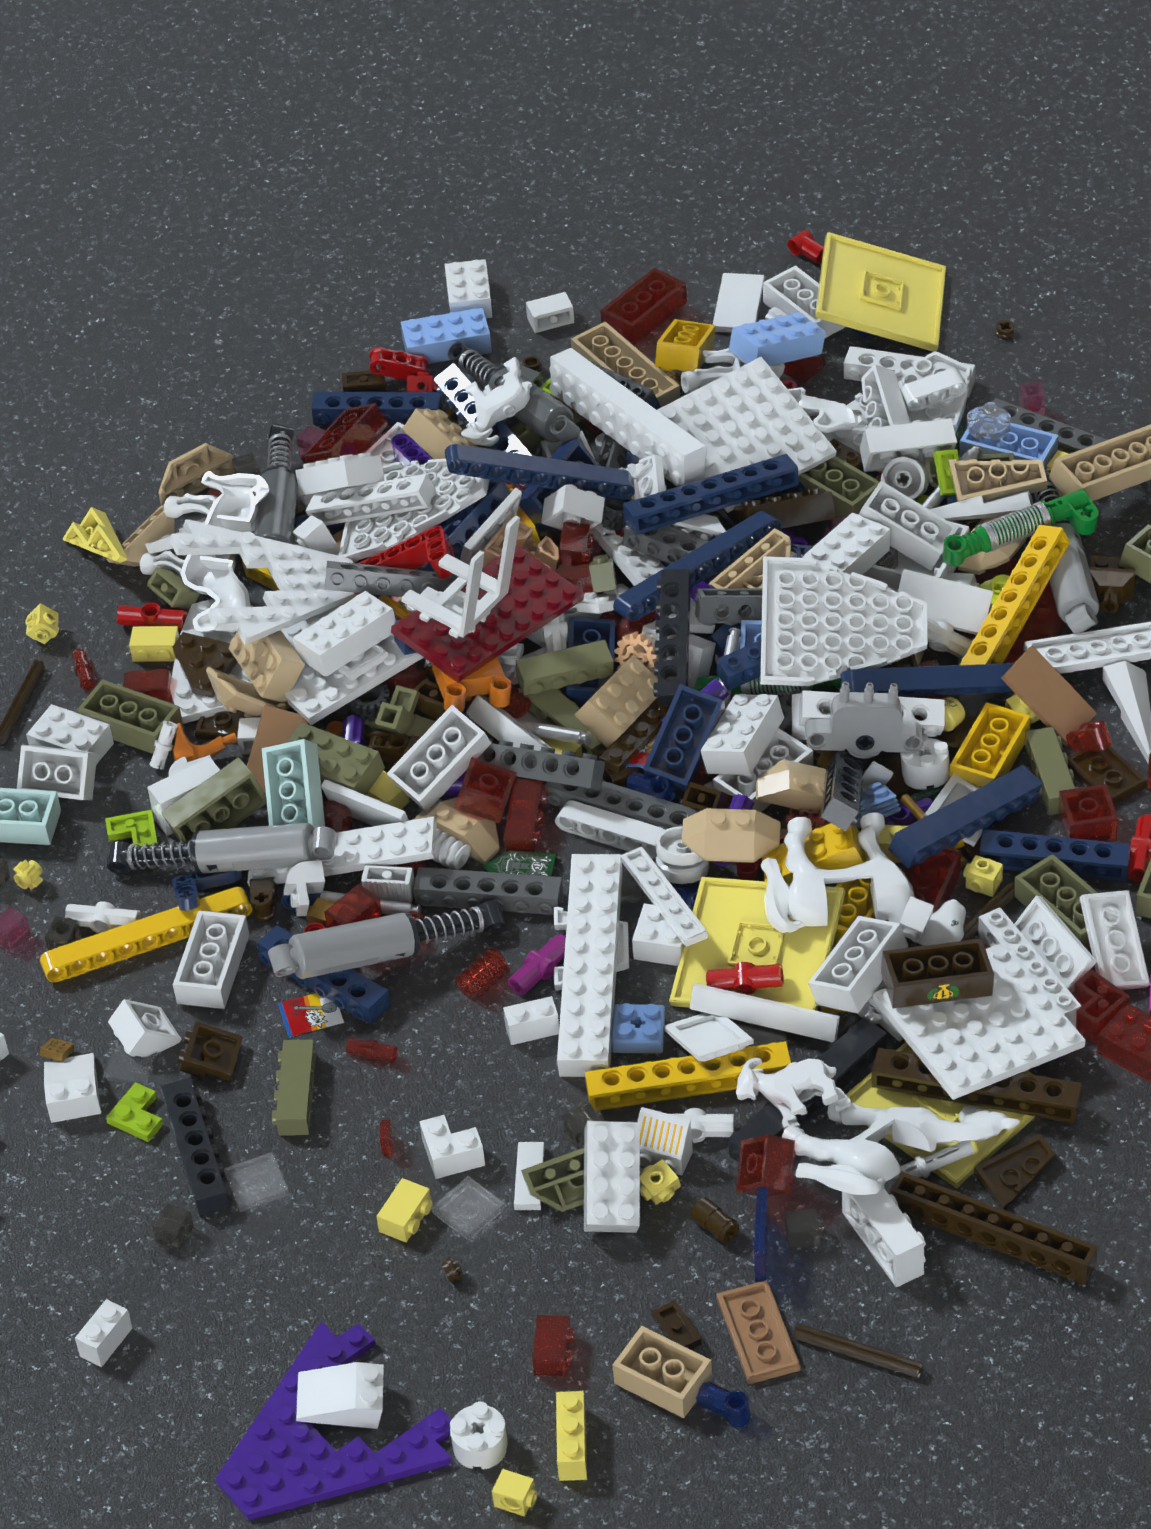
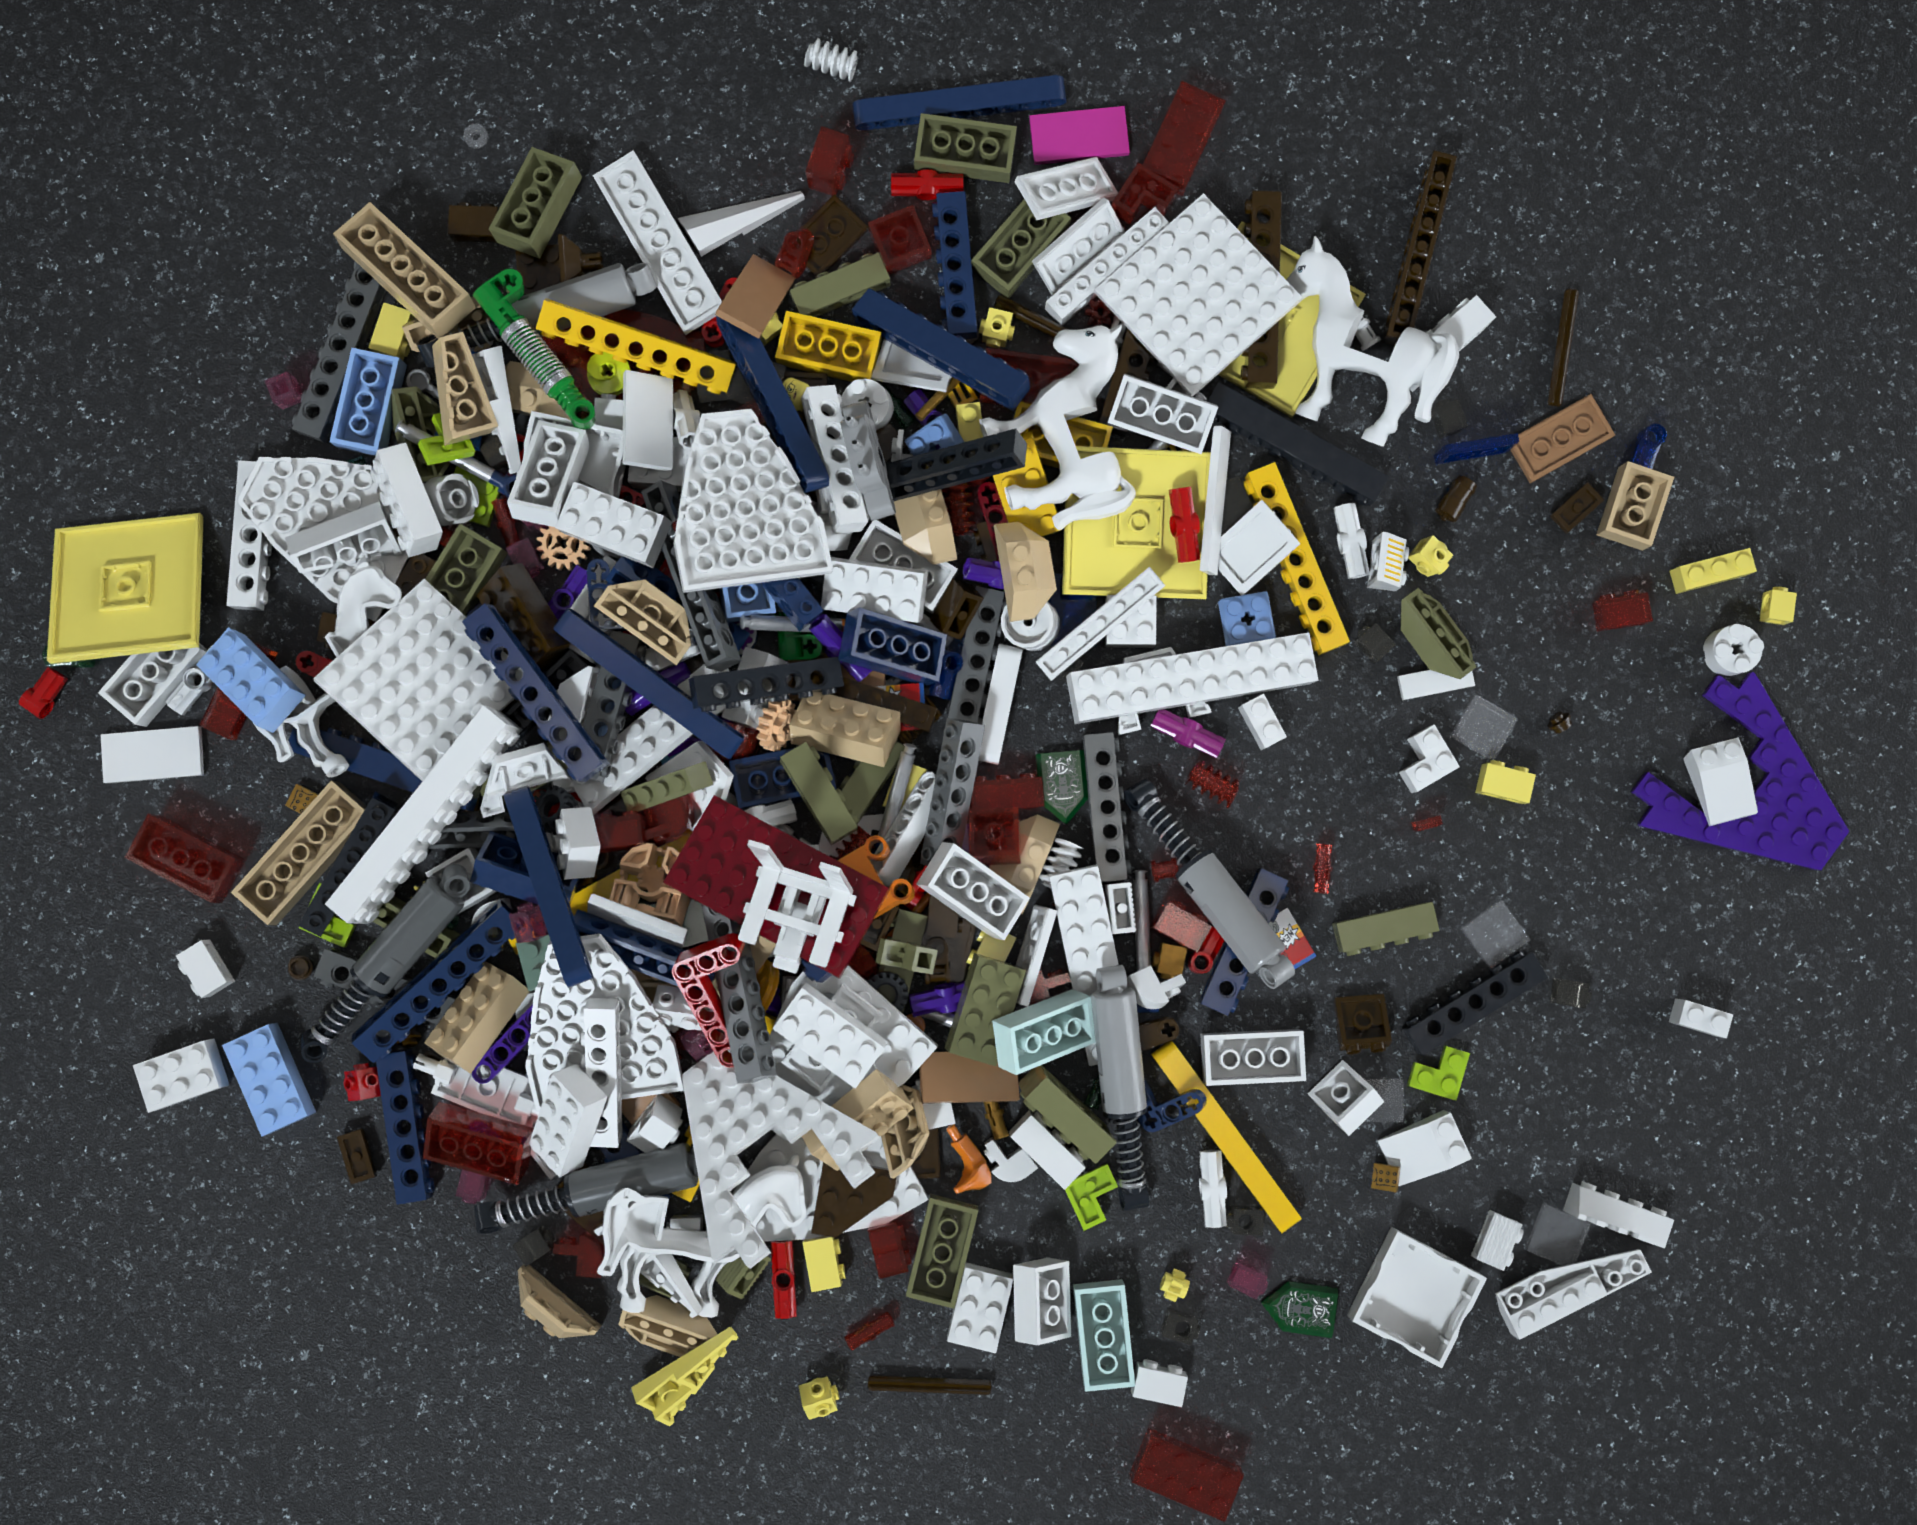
camera: 110 degrees left, 40 degrees up
(163, 745) = (979, 1199): white pin -> none
(396, 363) = (335, 1135): red piece -> none
(496, 404) = (430, 968): white animal -> none
(612, 1176) = (1450, 593): white brick -> none
(683, 345) = (261, 788): yellow brick -> none
(766, 1164) = (1409, 456): clear red brick -> none
(792, 1087) = (1313, 451): white animal -> none
(916, 918) = (1106, 364): white brick -> none
(933, 389) = (304, 490): white beam -> none
(937, 973) = (1176, 330): dark brown brick -> none
(979, 422) = (343, 409): clear plate -> none
(1004, 329) = (155, 437): dark brown bush -> none
(1014, 1170) = (1348, 248): dark brown wing -> none

